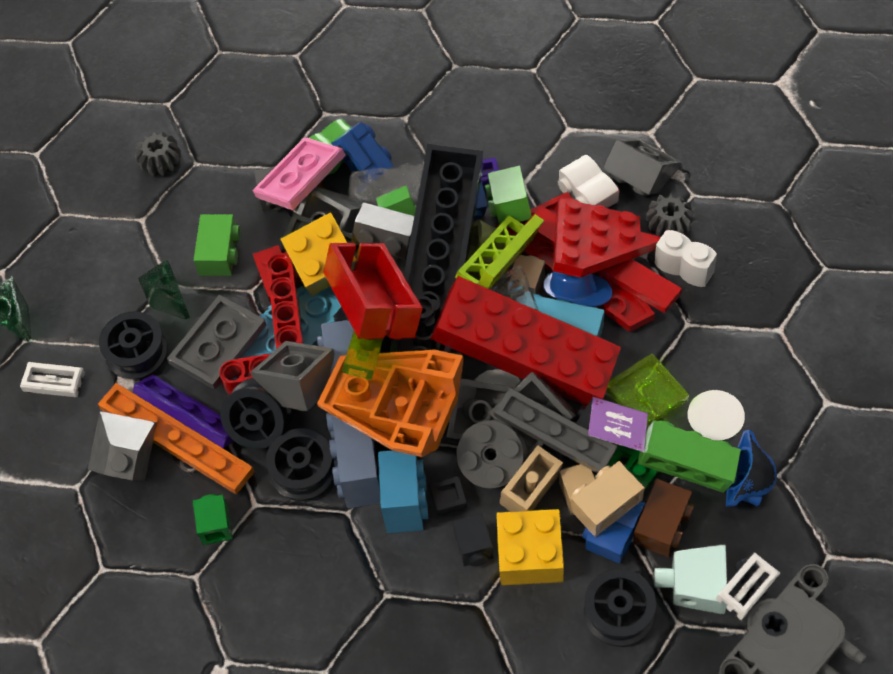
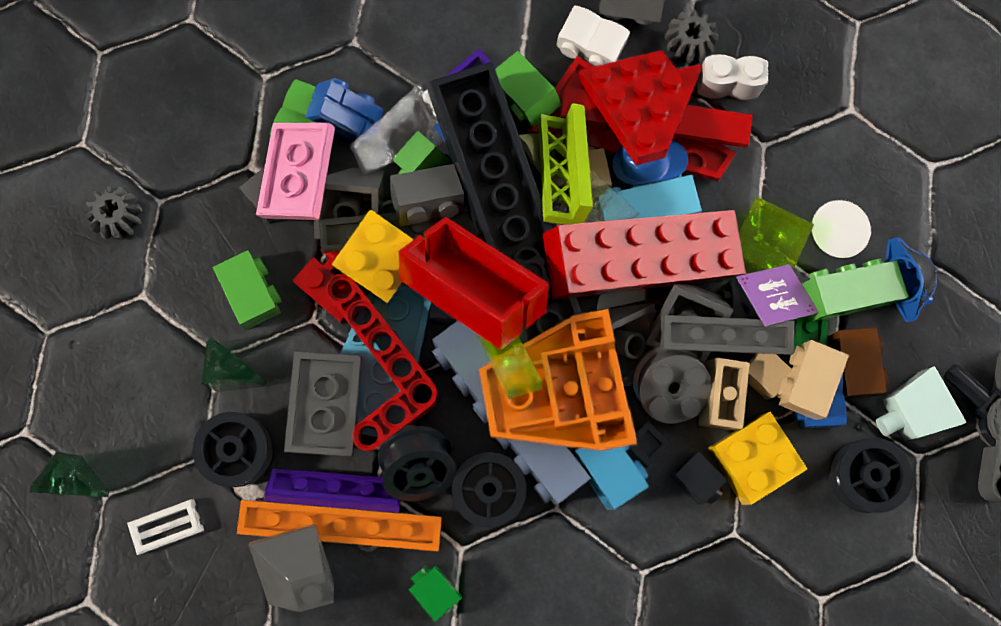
camera: 40 degrees left, 20 degrees up
(295, 374) = (442, 409): dark grey slope -> none
(733, 603) = (970, 396): white tile -> none

